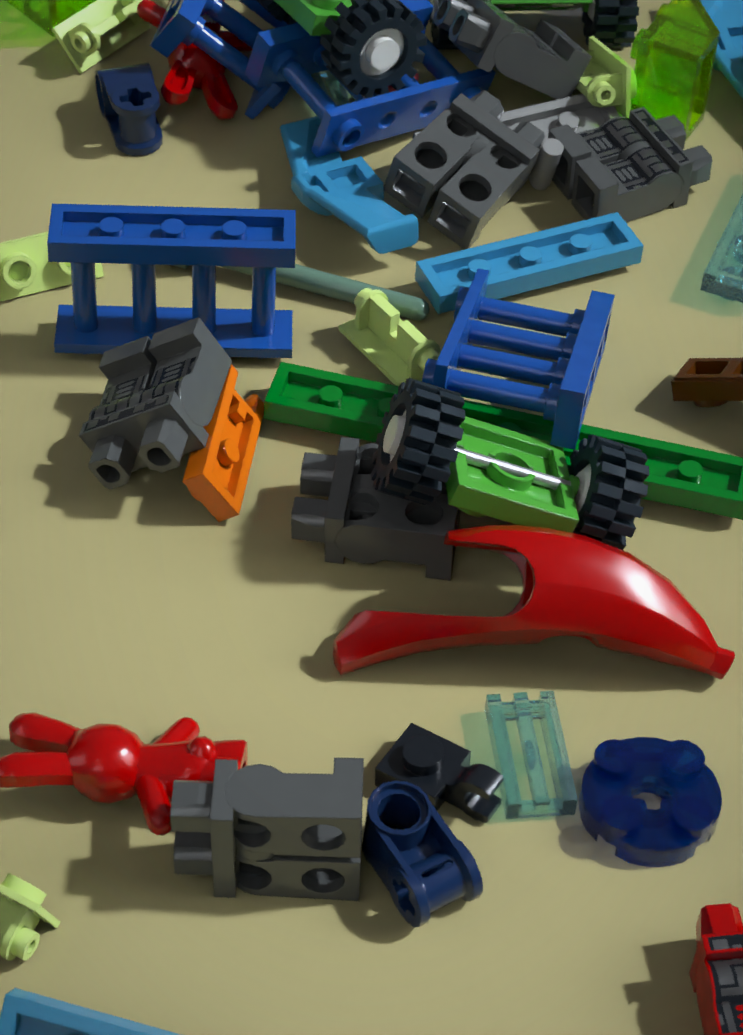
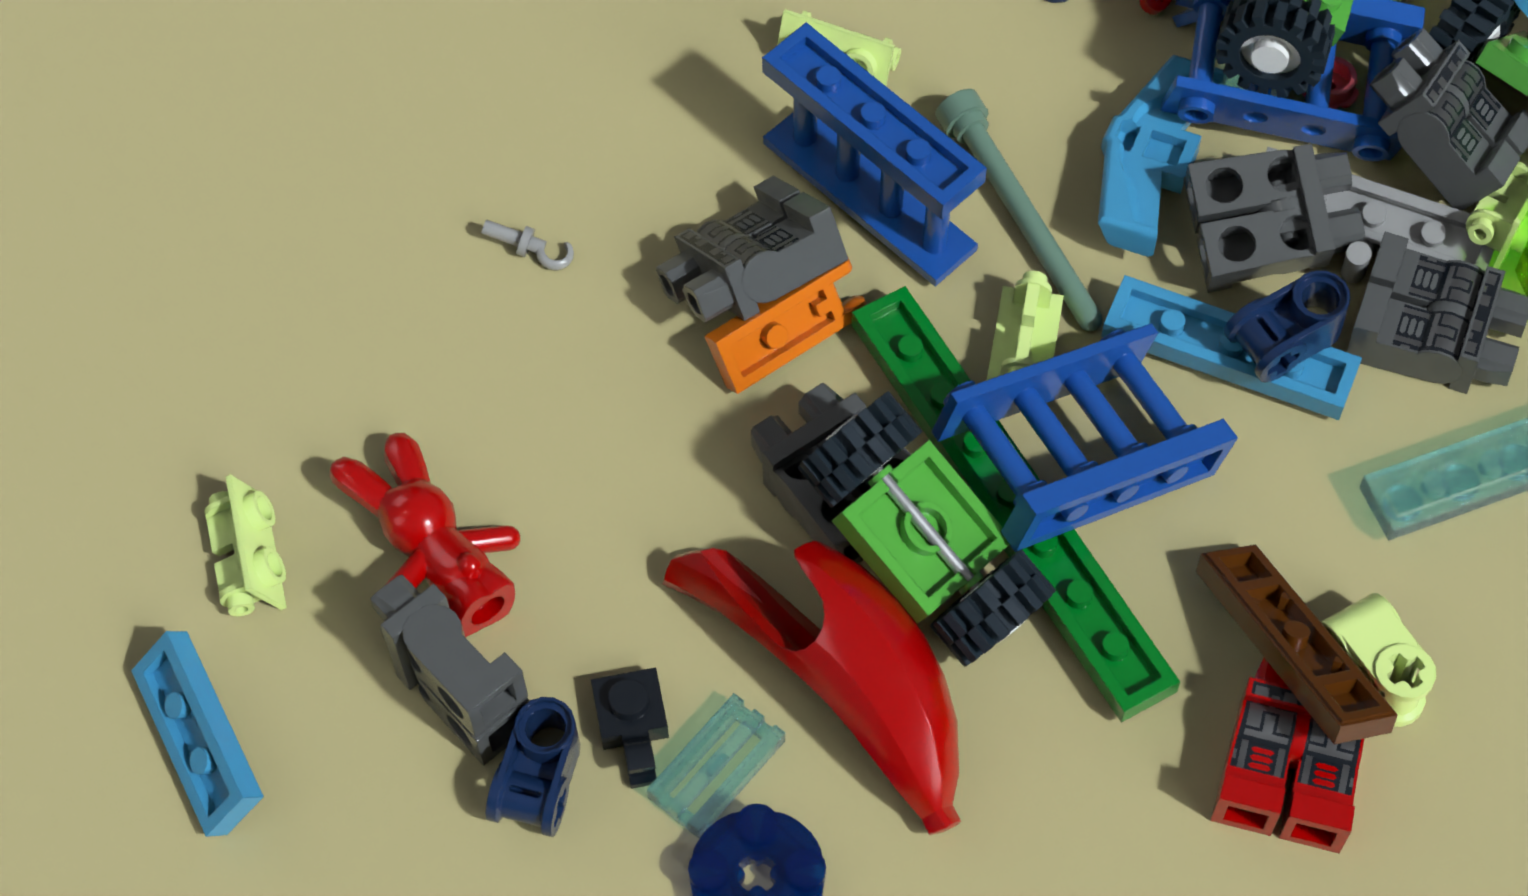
camera: 50 degrees right, 15 degrees up
(565, 207) = (1281, 329): none -> dark blue piece

